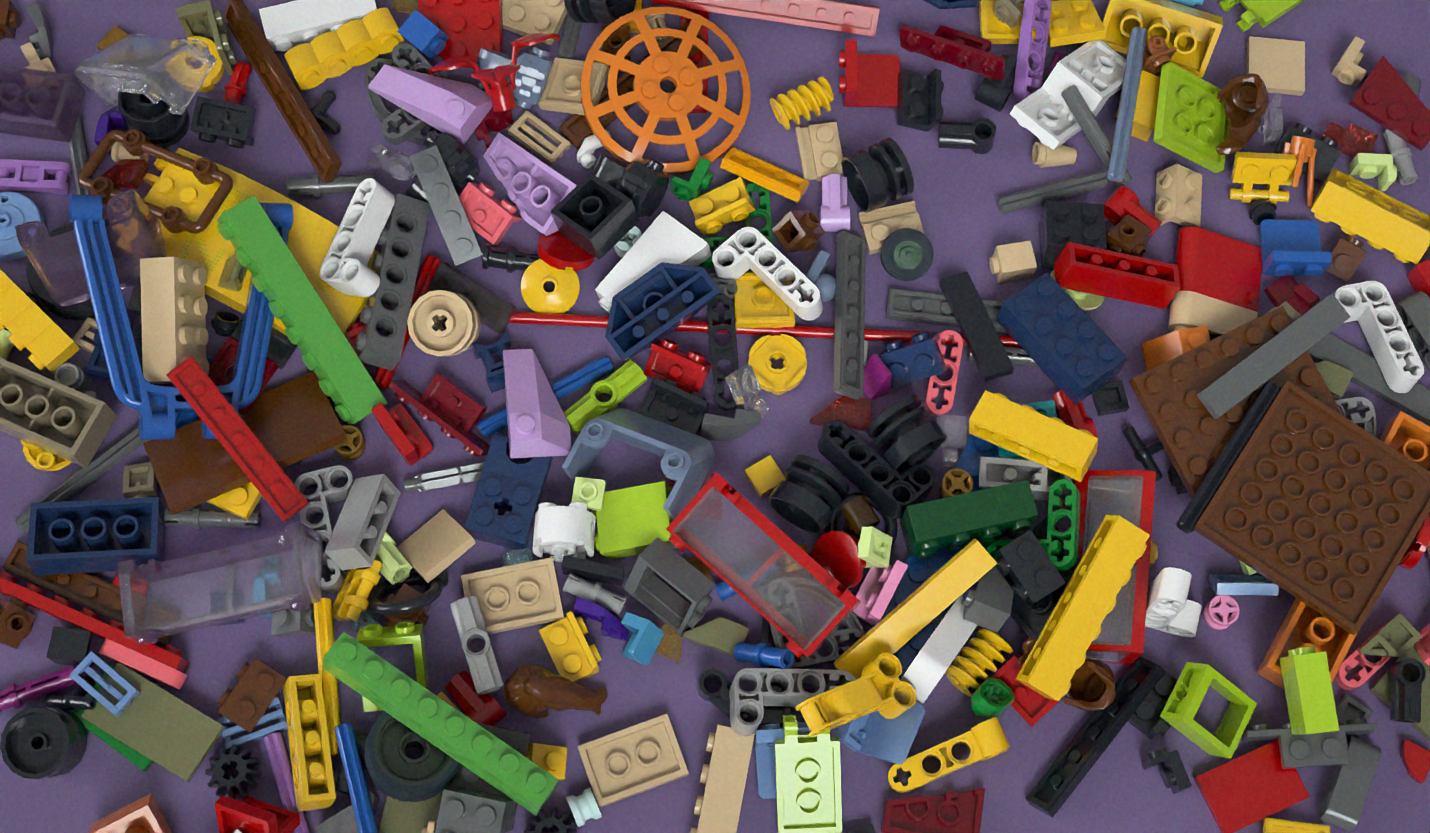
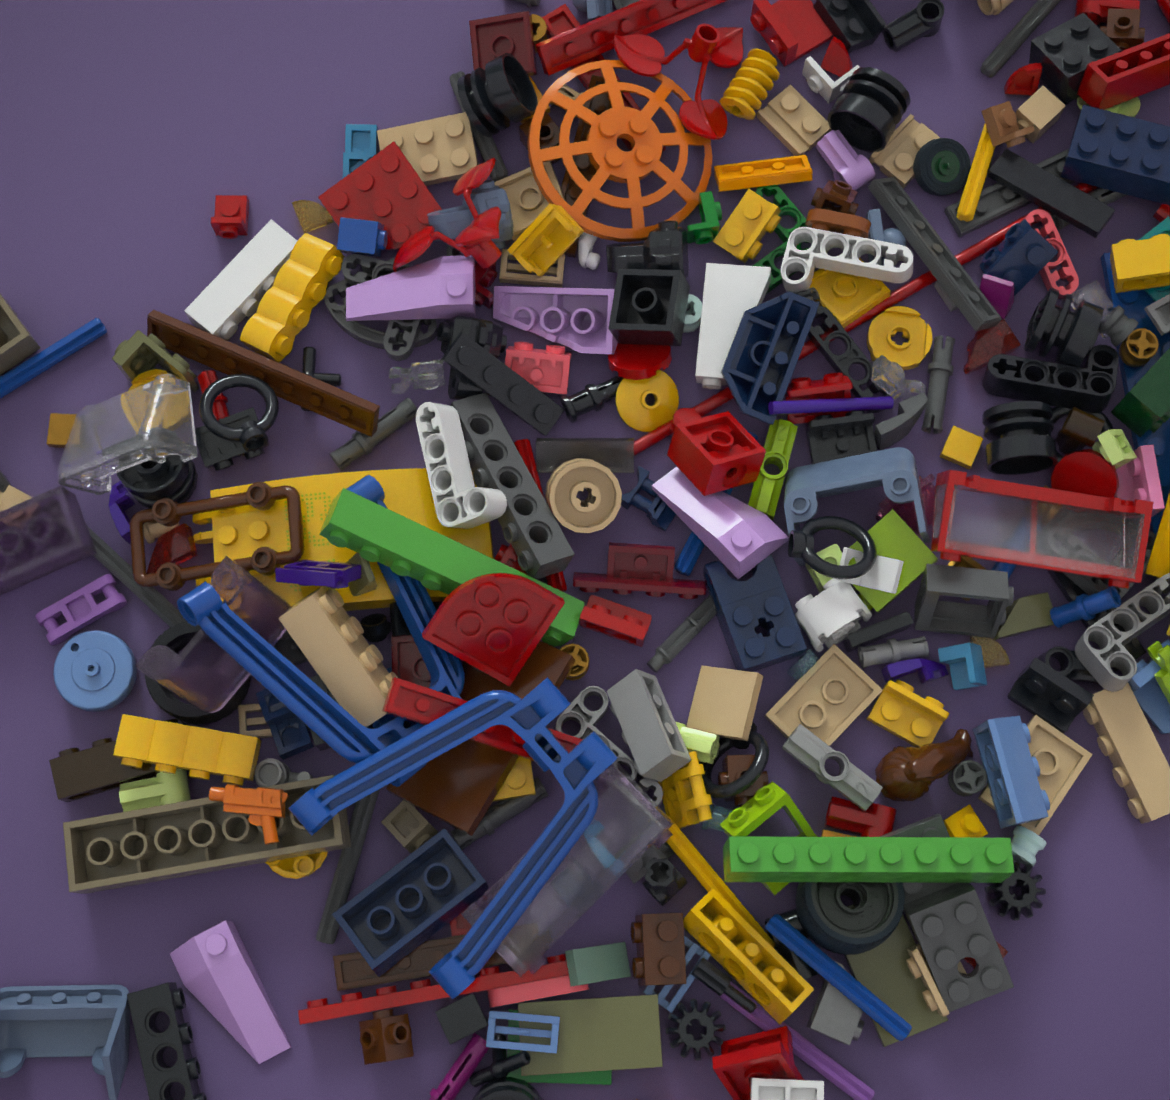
camera: 30 degrees left, 5 degrees up
(36, 386) = (260, 803): none -> orange piece
(197, 673) = (597, 963): none -> sand green tile
(199, 249) = (319, 573): none -> dark purple plate
(235, 124) = (251, 433): none -> black piece
(266, 500) = (572, 769): none -> blue piece
(275, 749) = (720, 983): none -> black axle
(289, 643) = (663, 880): none -> black piece
(299, 368) = (494, 622): none -> red plate
(556, 119) = (545, 239): none -> yellow hinge
(565, 347) = (714, 450): none -> red brick
(570, 462) = (802, 545): none -> black piece
(580, 720) = (973, 774): none -> dark grey wheel
(609, 738) = (1011, 771): none -> medium blue slope
(614, 517) = (882, 576): none -> white bracket
(679, 375) = (830, 405): none -> dark purple bar
(687, 705) = (1049, 695): none -> black bracket
(784, 243) = (838, 222): none -> dark orange plate
(790, 407) = (939, 371): none -> dark grey pin
(803, 61) = (719, 45): none -> red plant
(859, 132) = (822, 83): none -> white bracket
(886, 123) = (837, 58): none -> red tile
(933, 275) = (976, 177): none -> yellow axle
(949, 457) = (1117, 325): none -> dark grey wheel
(977, 252) = (1003, 125): none -> medium nougat bracket
(1023, 229) = (1024, 80): none -> red tile

